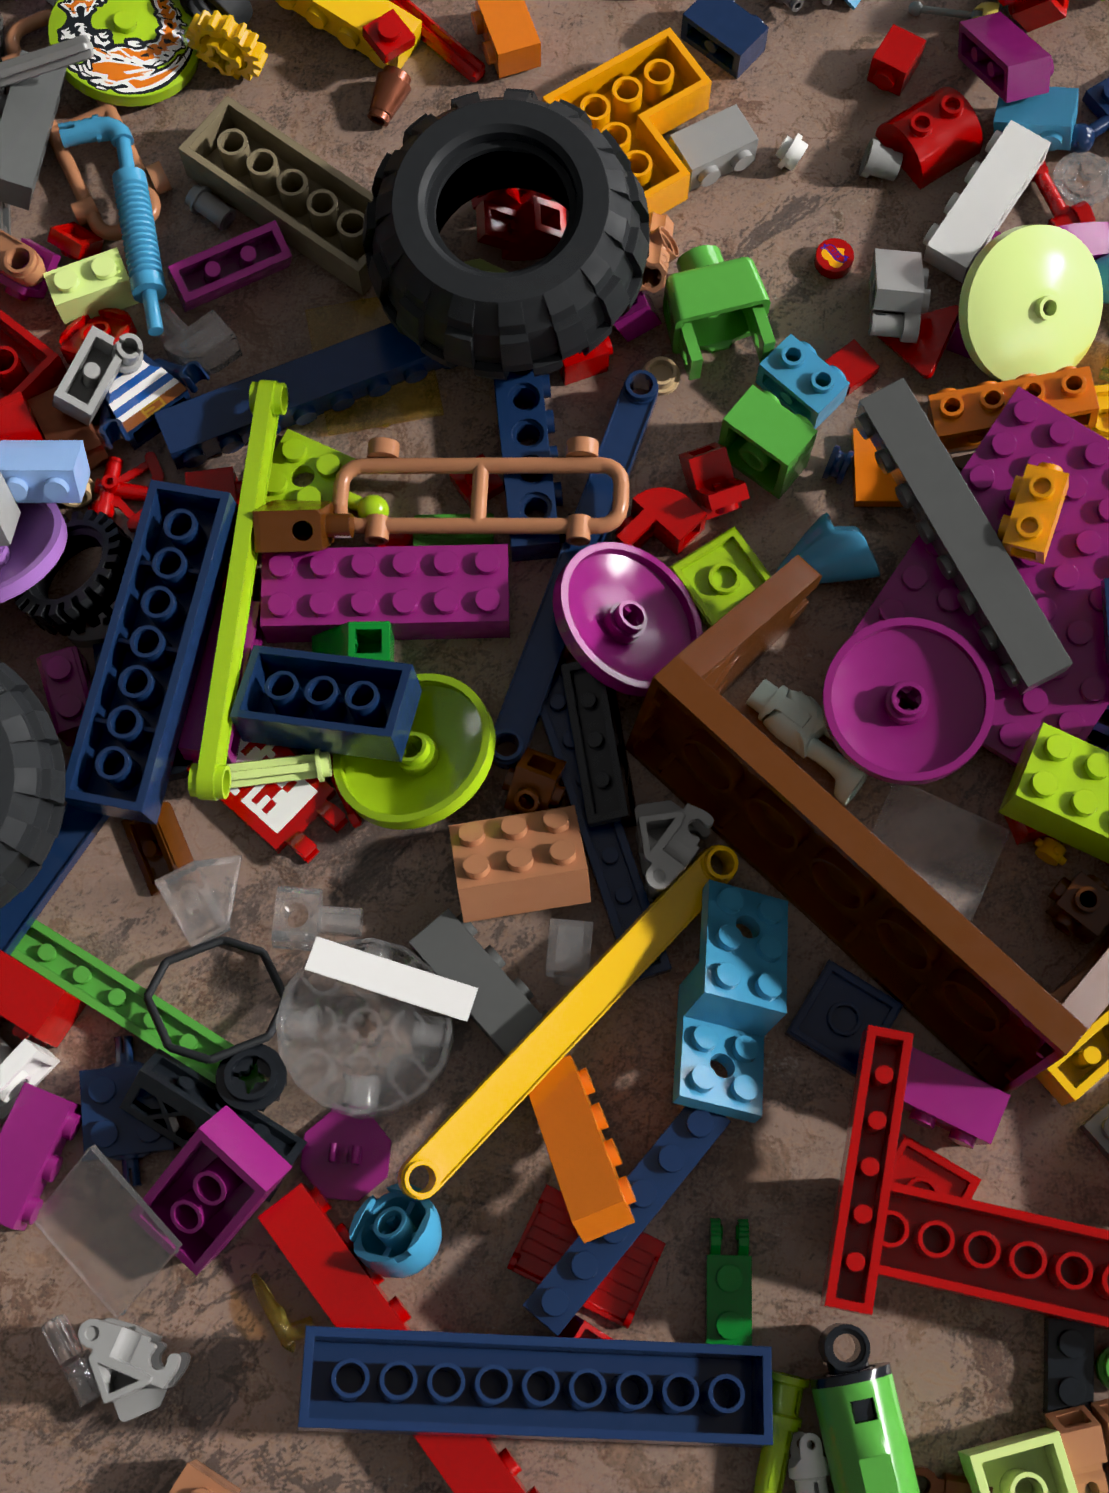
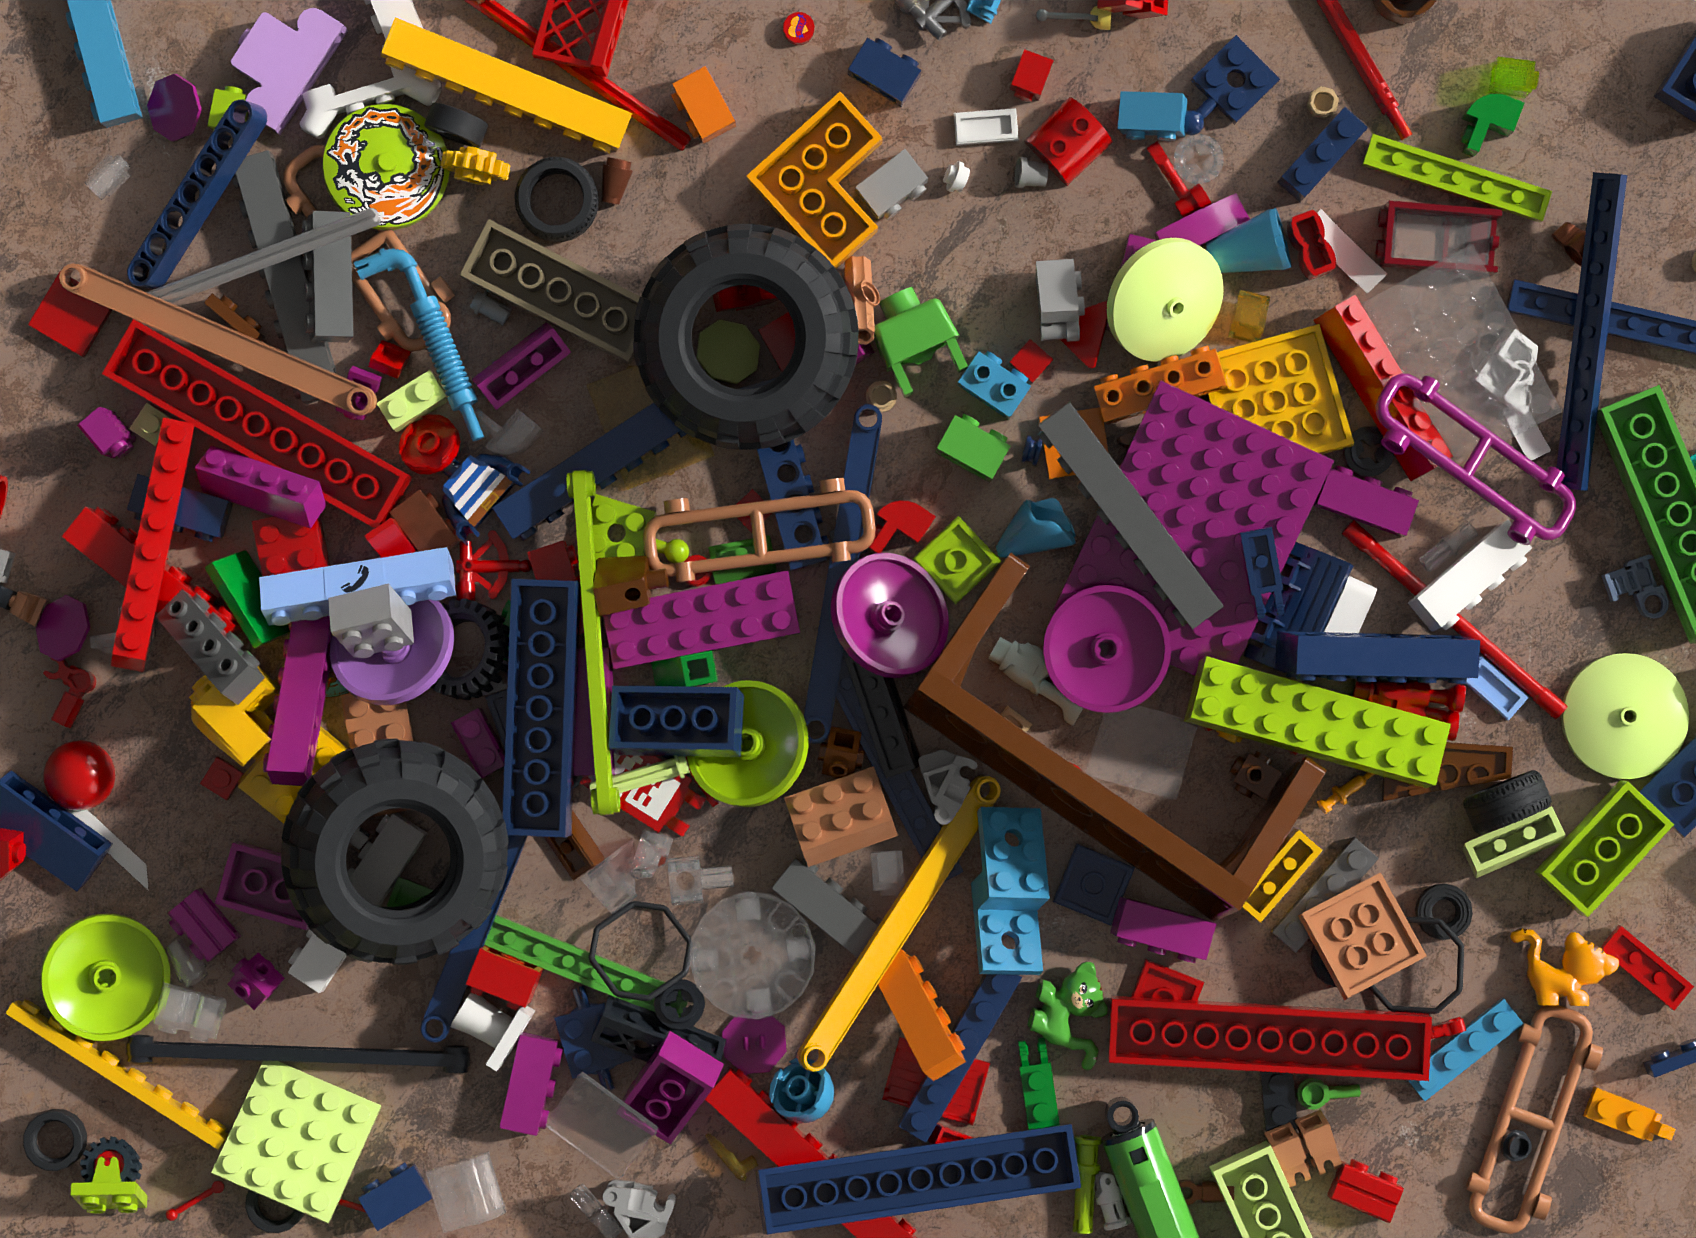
camera: 10 degrees left, 15 degrees up
(95, 371) = (443, 490): light grey hinge -> none
(258, 874) = (650, 854): none -> clear rock
(309, 70) = (545, 168): none -> black tyre
(388, 36) = (608, 137): red plate -> none
(391, 979) = (765, 919): white sticker -> none
(712, 480) = (936, 484): red brick -> none
(806, 1168) = (1078, 995): none -> bright green animal
(833, 110) = (986, 127): none -> white tile
(834, 258) = (1004, 266): red tile -> none
(867, 1171) = (1119, 999): red brick -> none
(986, 200) = (1120, 202): white brick -> none
(1004, 57) = (1120, 68): magenta brick -> none
(1035, 511) = (1183, 491): light orange brick -> none

